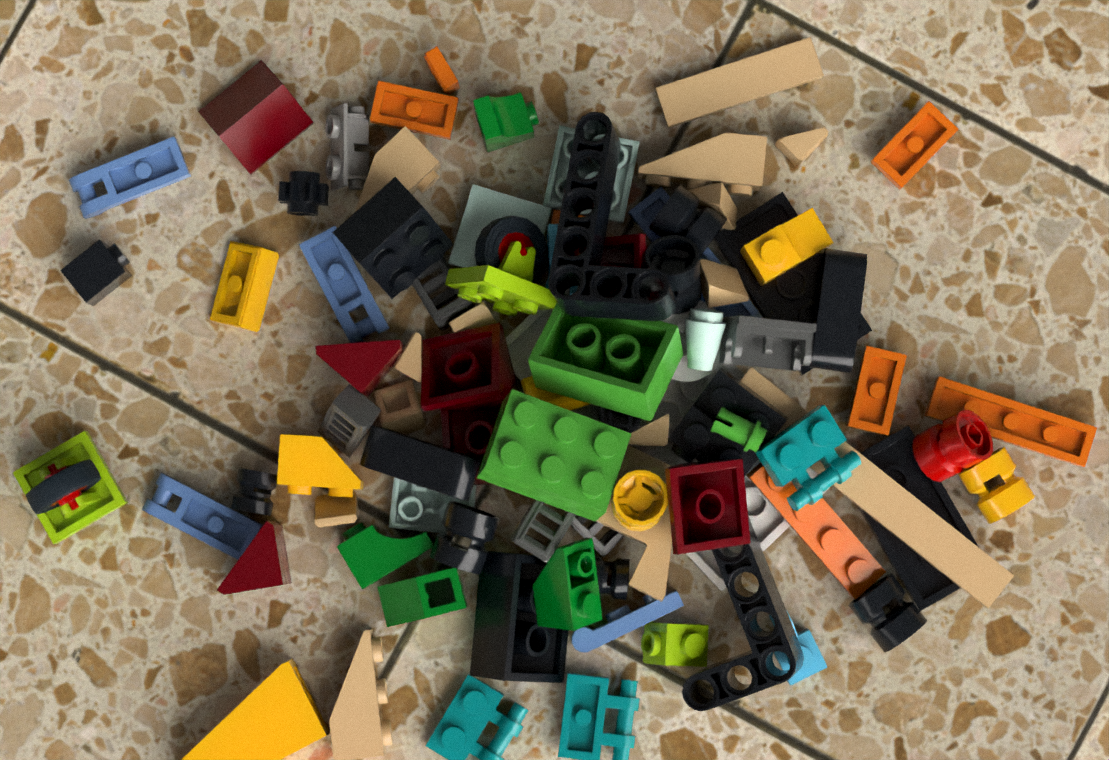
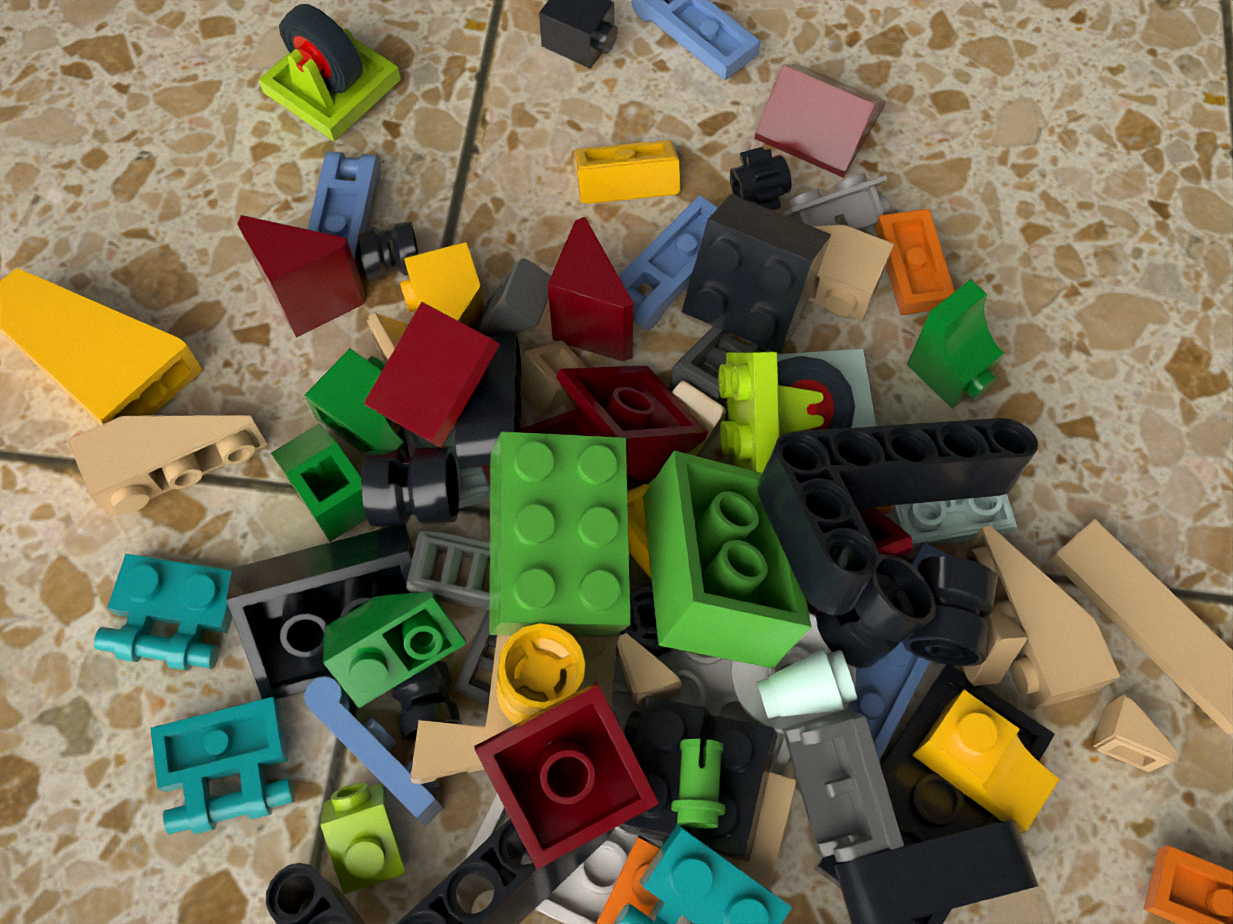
camera: 70 degrees right, 20 degrees down
(400, 494) = (431, 374): none -> dark red slope
(410, 359) = (622, 351): tan slope -> none
(441, 71) = (980, 263): orange tile -> none
(721, 284) = (891, 689): tan slope -> none

